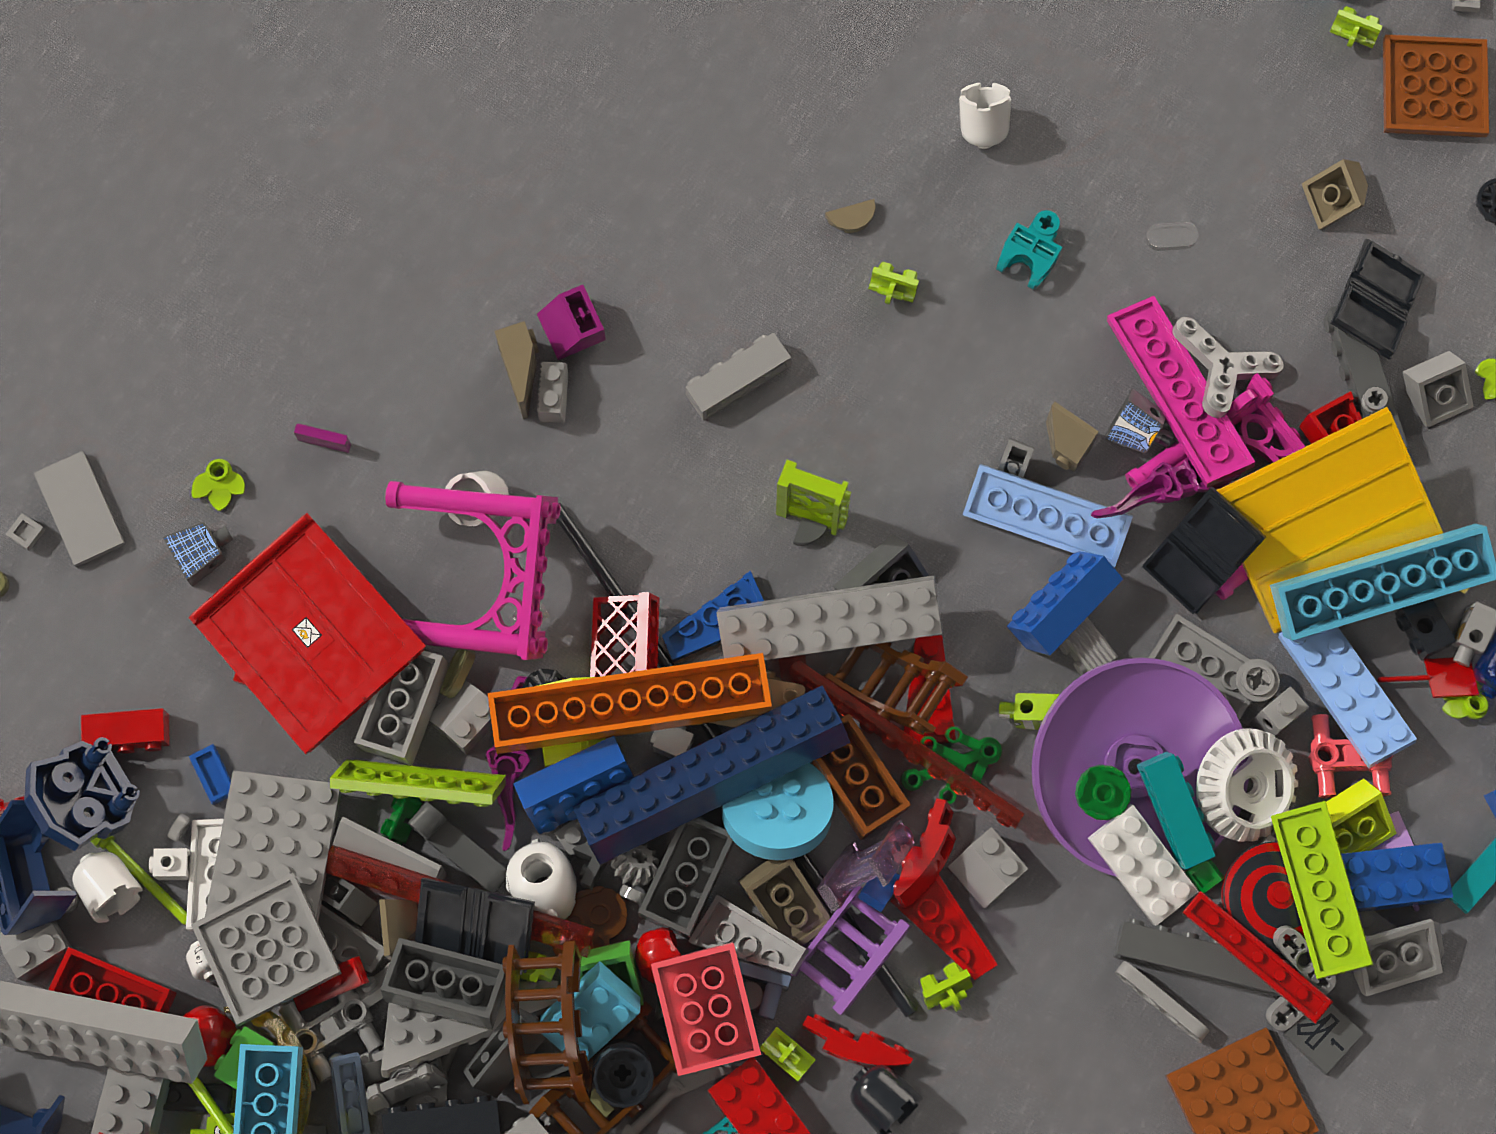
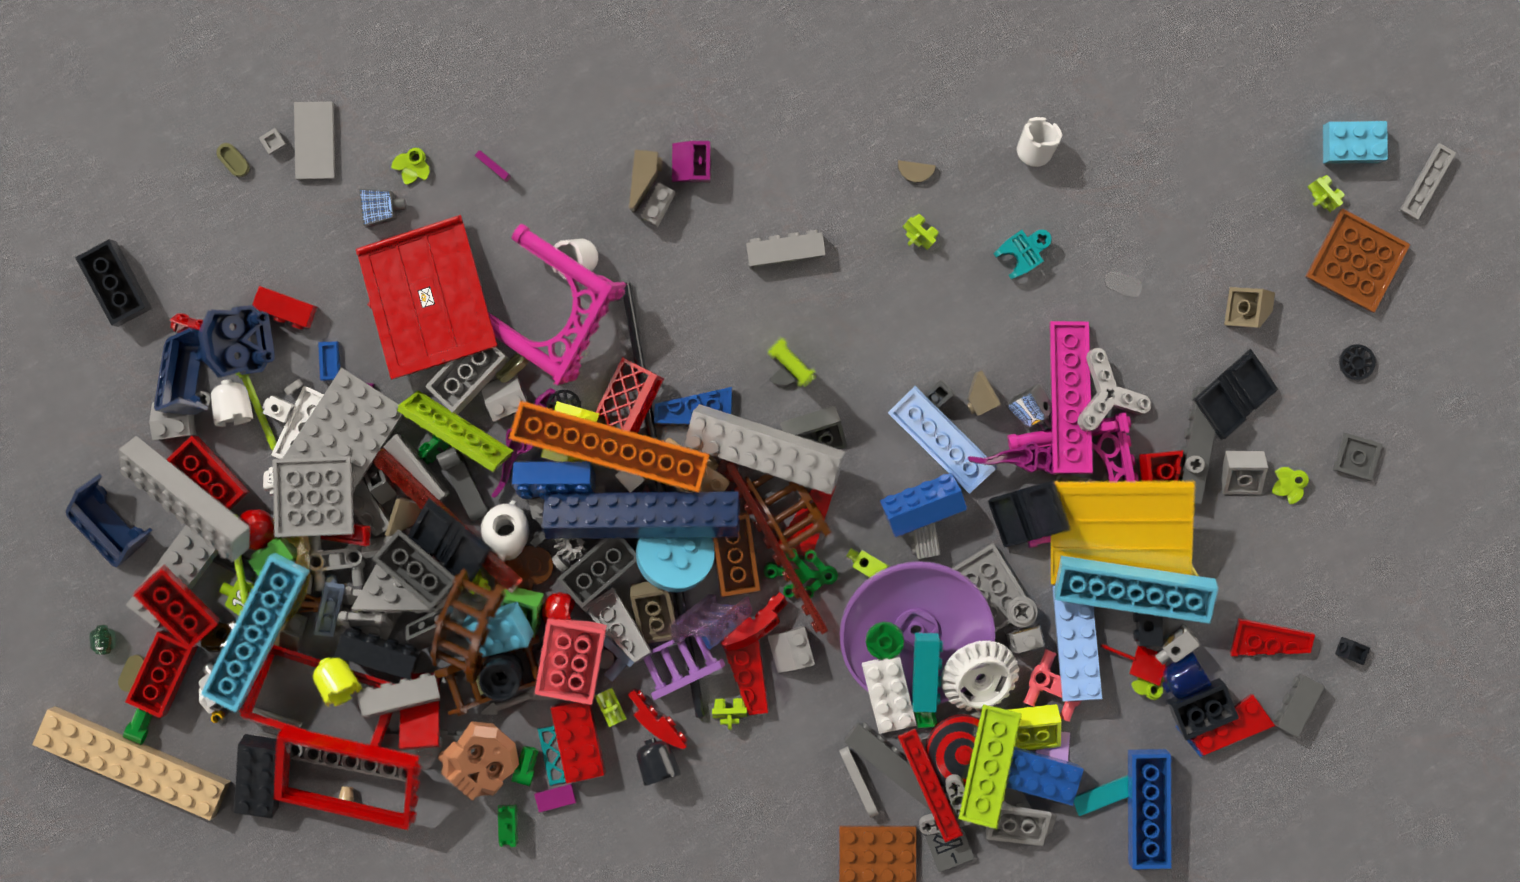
camera: 25 degrees right, 15 degrees up
(325, 1101) = (311, 606): none -> dark orange piece

